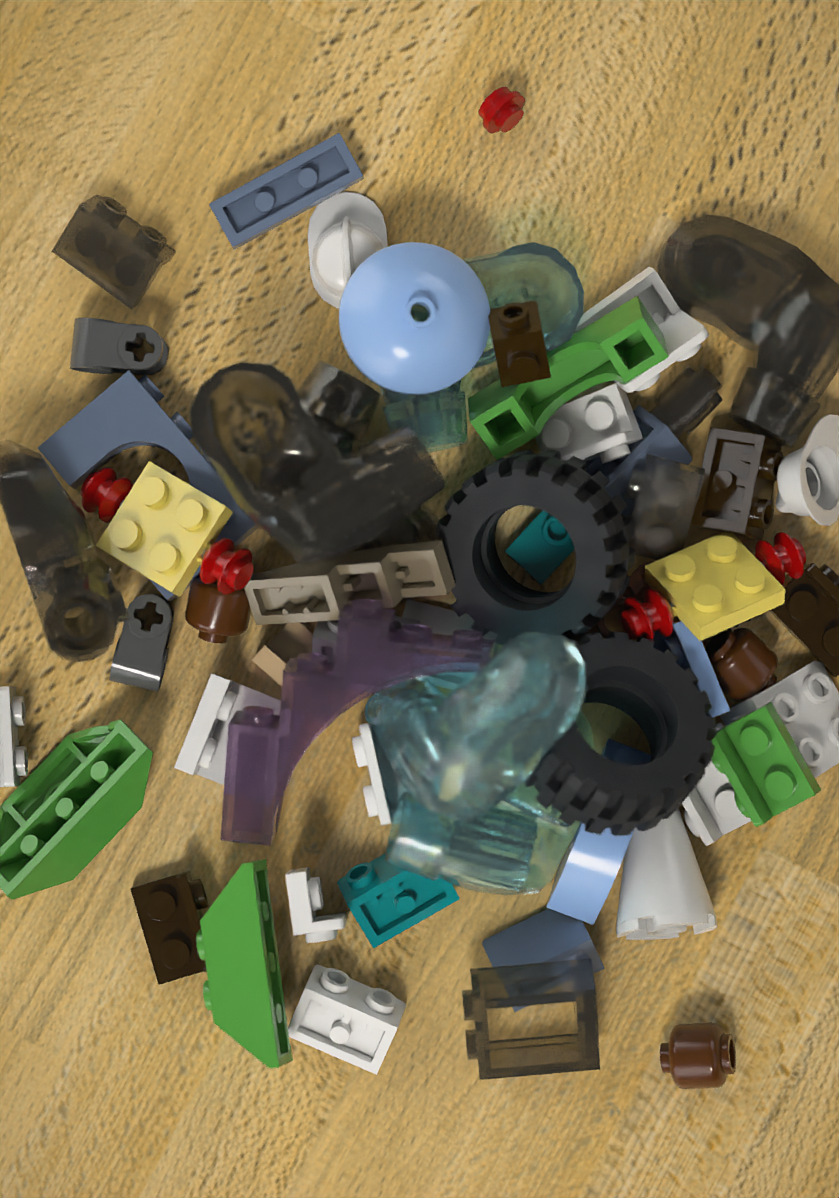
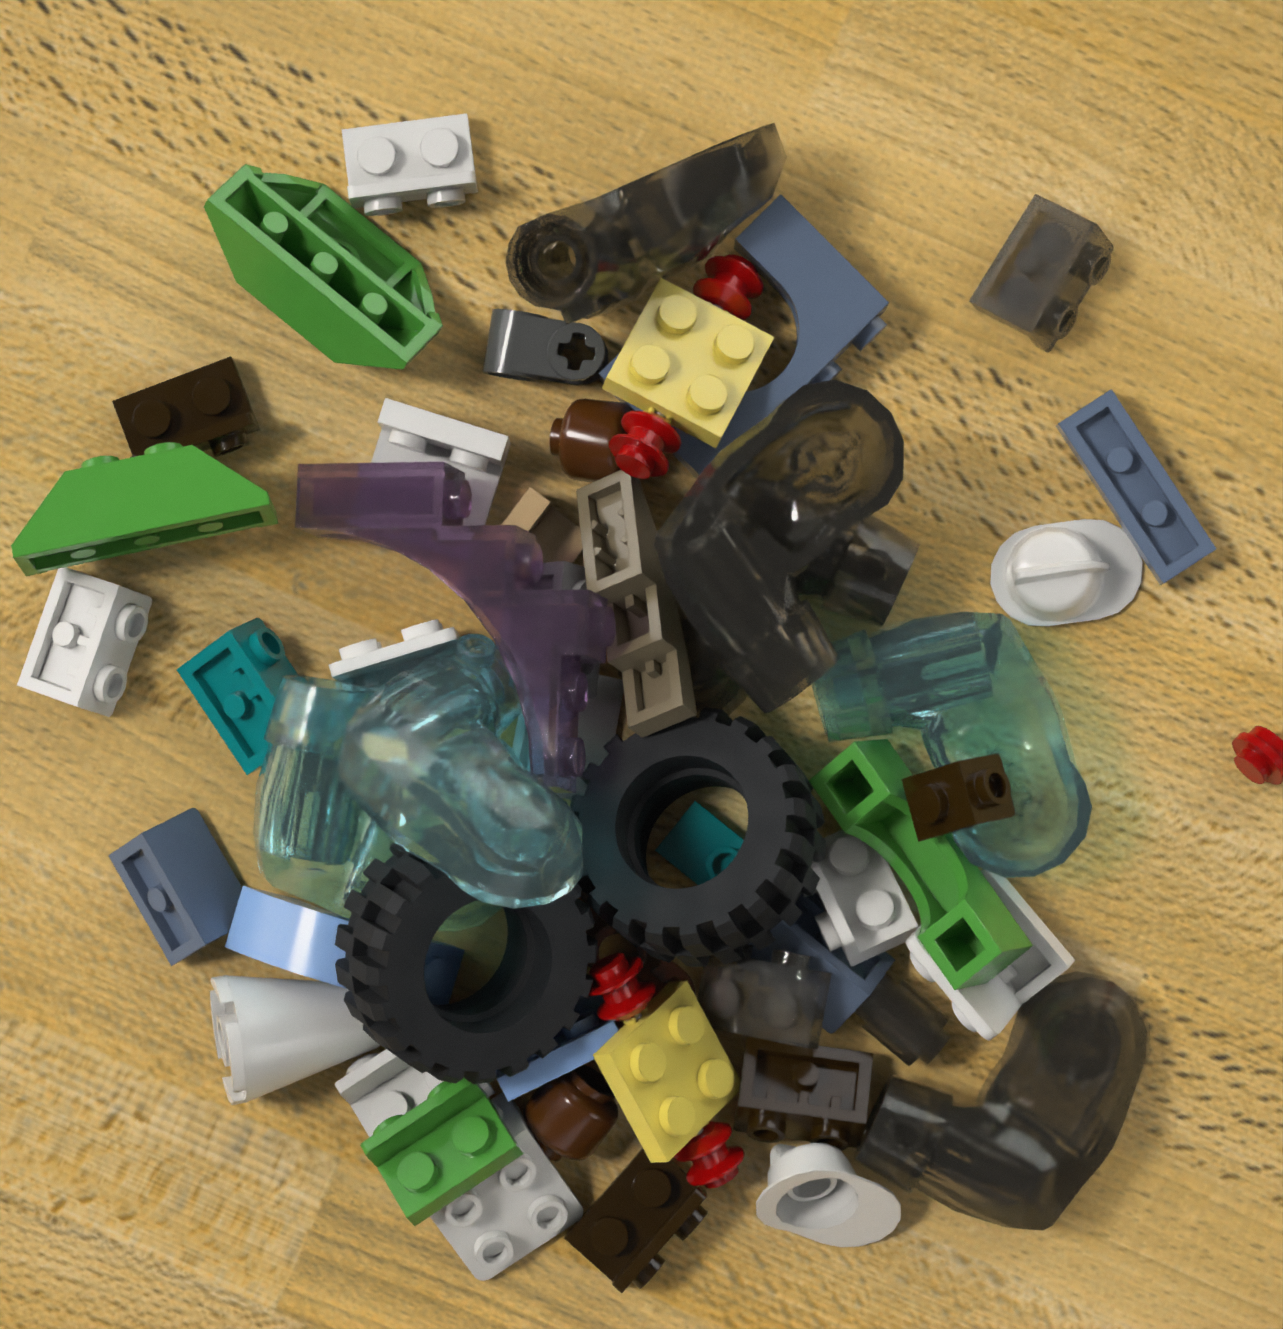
camera: 85 degrees right, 0 degrees up
(107, 348) = (920, 277): dark grey piece -> none
(304, 898) = (229, 576): white bracket -> none
(389, 342) = (952, 622): light blue dish -> none
(530, 986) = (138, 869): clear smoke window -> none
(698, 1056) = (67, 1093): reddish brown head -> none

